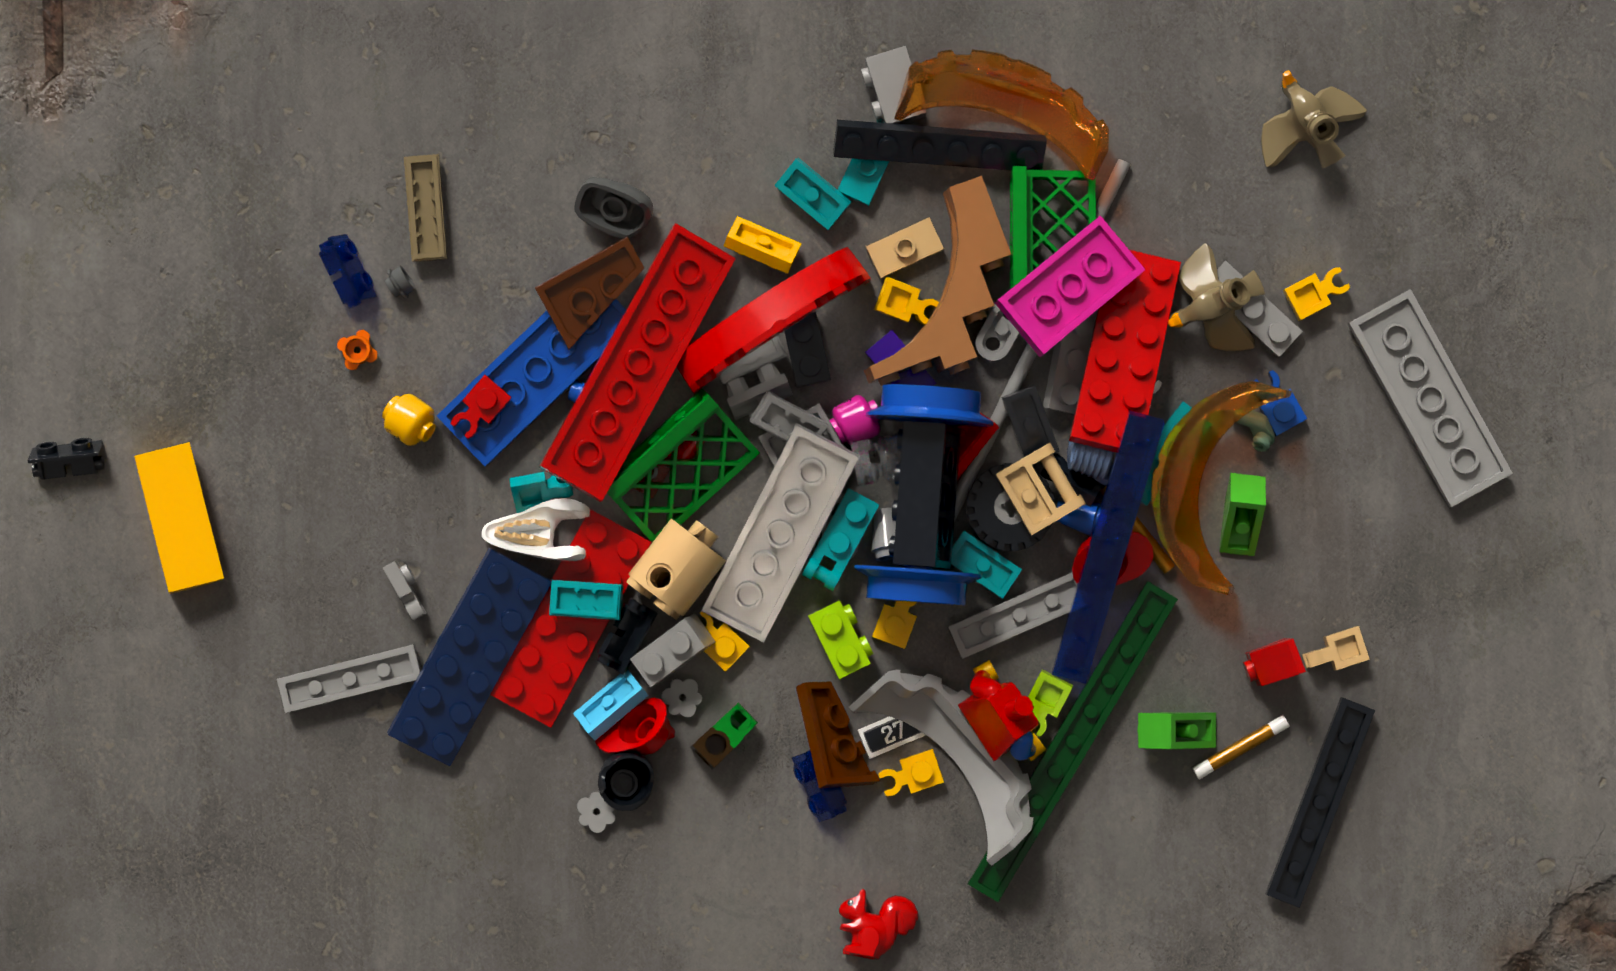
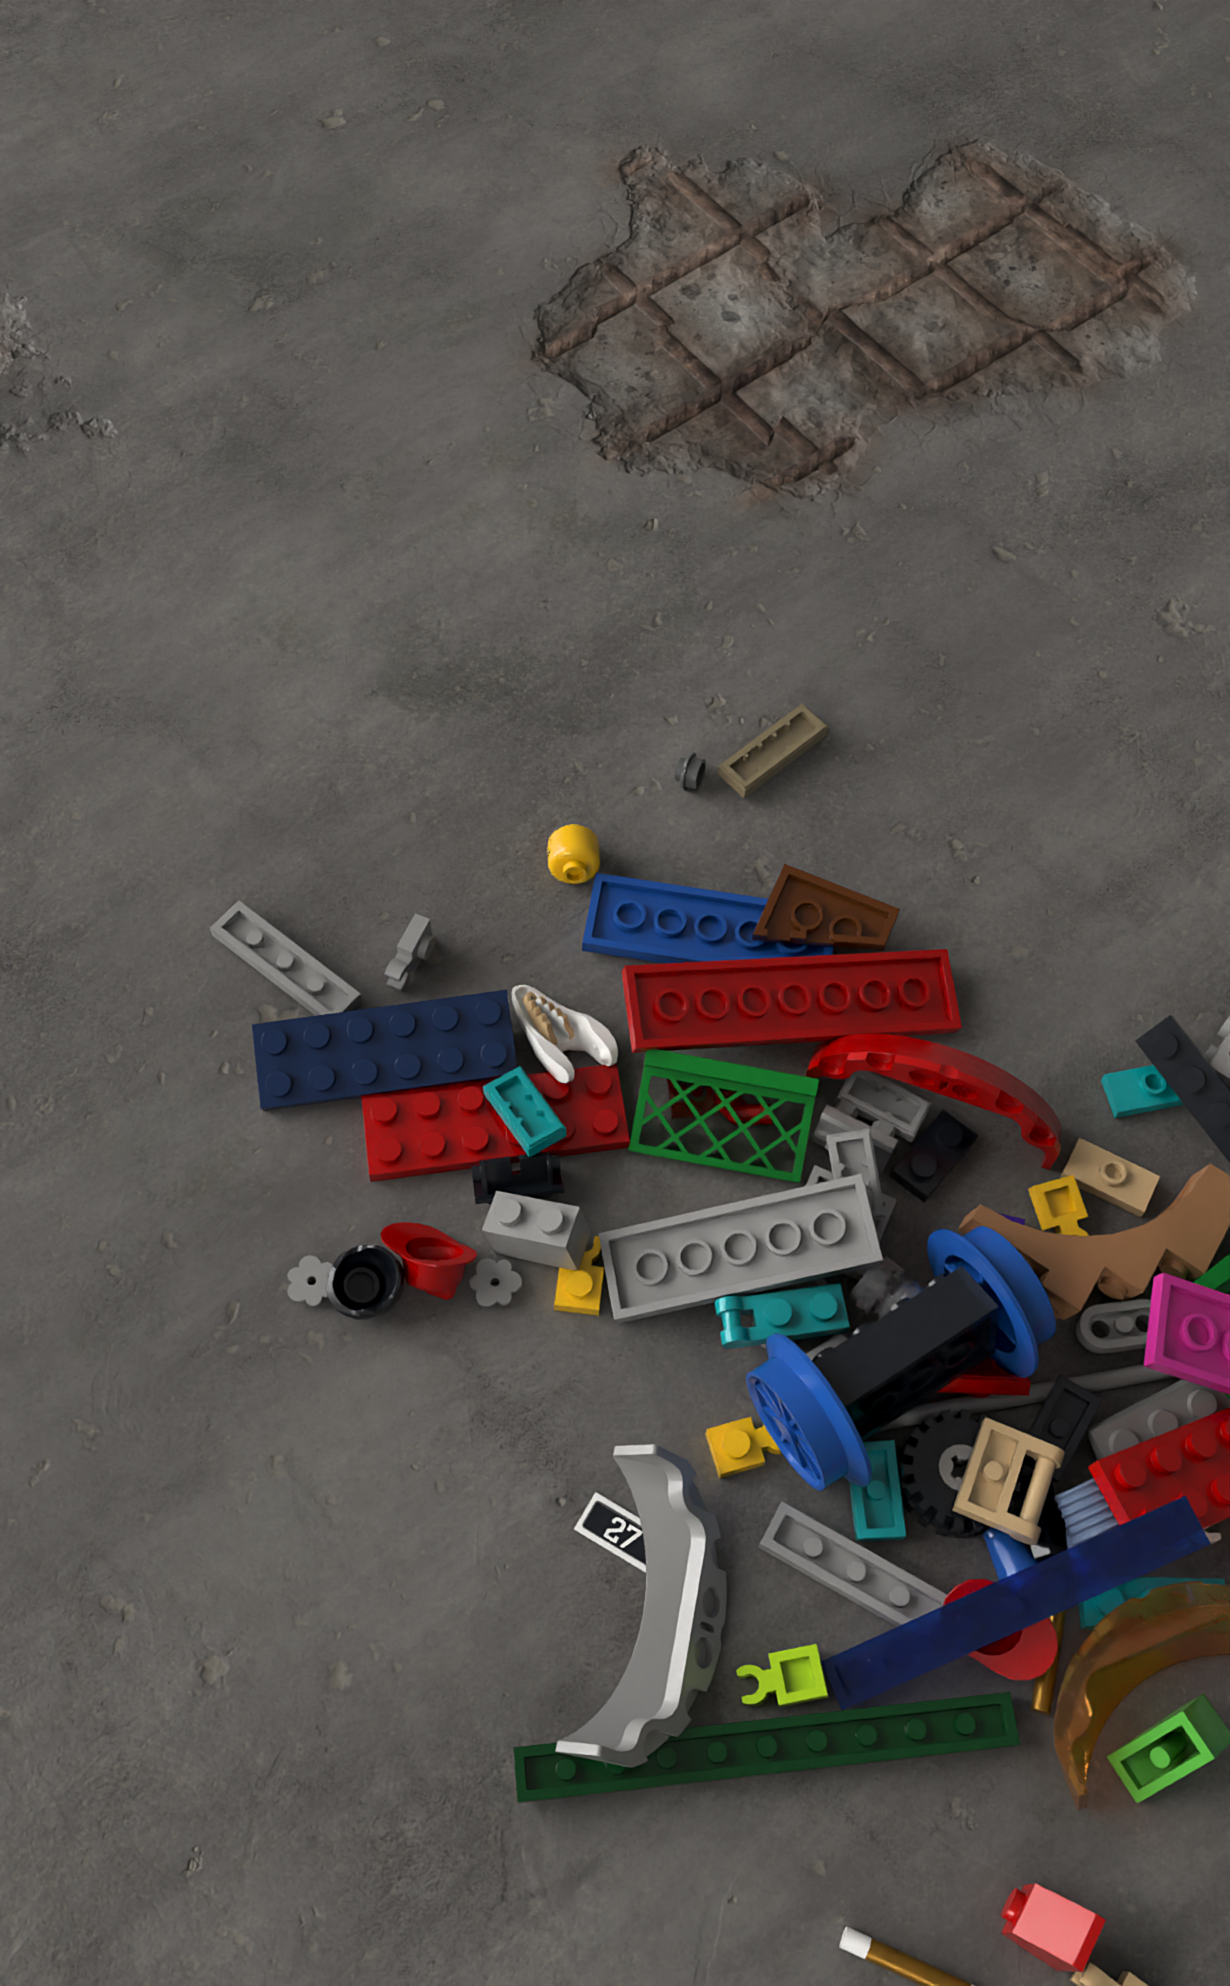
camera: 50 degrees right, 25 degrees down
(52, 458) = (332, 633): black hinge -> none
(179, 517) = (329, 730): yellow brick -> none
(342, 255) = (672, 717): clear blue hinge -> none
(354, 359) = (602, 769): orange plate -> none
(484, 403) = (642, 900): red plate -> none
(535, 489) = (595, 998): teal plate -> none
(610, 704) = (435, 1214): medium azure plate -> none
(613, 207) = (914, 887): dark grey piece -> none
(682, 556) = (625, 1173): tan cylinder -> none
(724, 736) = (486, 1350): leg -> none
(762, 244) = (993, 1036): yellow plate -> none
(813, 193) = (1082, 1054): teal plate -> none
(822, 802) = (493, 1504): clear blue hinge -> none
(832, 747) = (559, 1468): reddish brown wing -> none
(839, 638) = (677, 1393): lime brick -> none
(851, 421) = (907, 1246): dark pink head -> none
(872, 932) = (382, 1683): red animal -> none
(917, 771) = (598, 1593): yellow plate -> none
(1001, 716) = (732, 1635): red torso -> none
(1176, 730) = (876, 1868): bright green slope -> none

